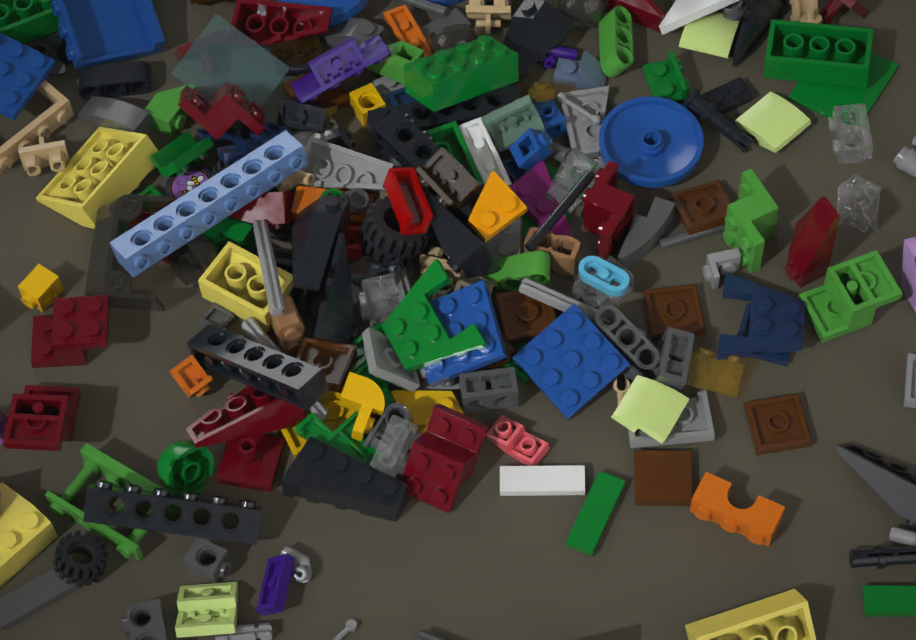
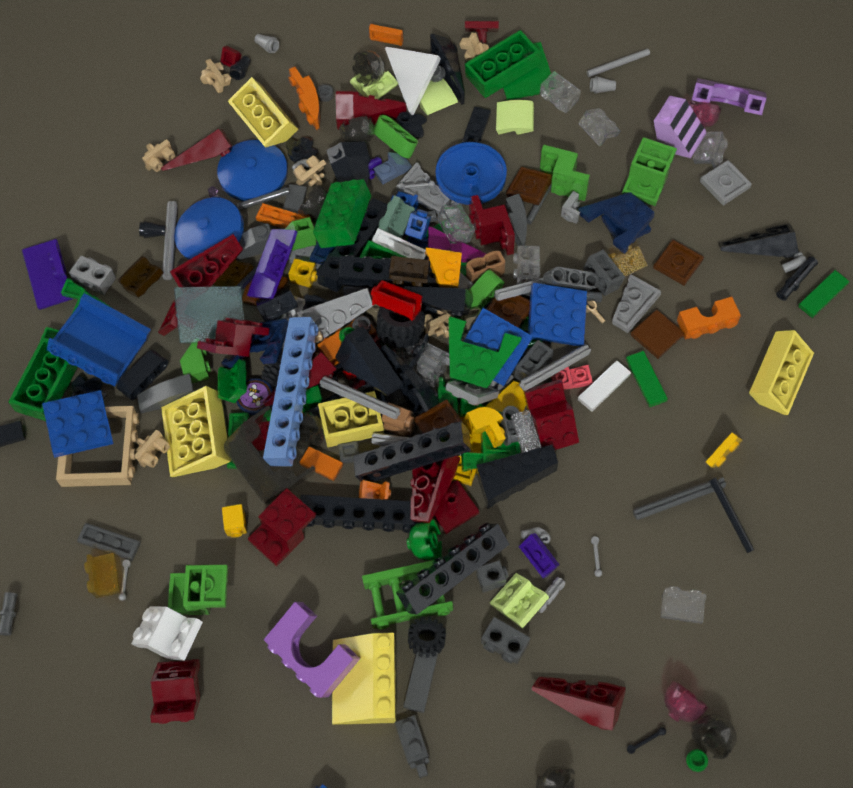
camera: 45 degrees left, 5 degrees up
(42, 418) = (322, 585): dark red bracket -> none
(153, 372) = (351, 506): none -> black brick
(179, 307) = (323, 463): none -> orange tile
(503, 411) = (554, 367): none -> light grey axle
(541, 91) = (385, 192): clear yellow plate -> none
(559, 211) = (473, 243): black bar -> none
(605, 276) = (528, 257): medium azure plate -> none
(650, 47) = (412, 123): none -> black plate
(650, 408) = (619, 304): yellowish green slope -> none
(666, 79) = (440, 136): green bracket -> none
(673, 308) = (571, 249): reddish brown tile -> none
(709, 112) = (484, 135): black pin -> none
(812, 243) = (606, 157): dark red wedge -> none

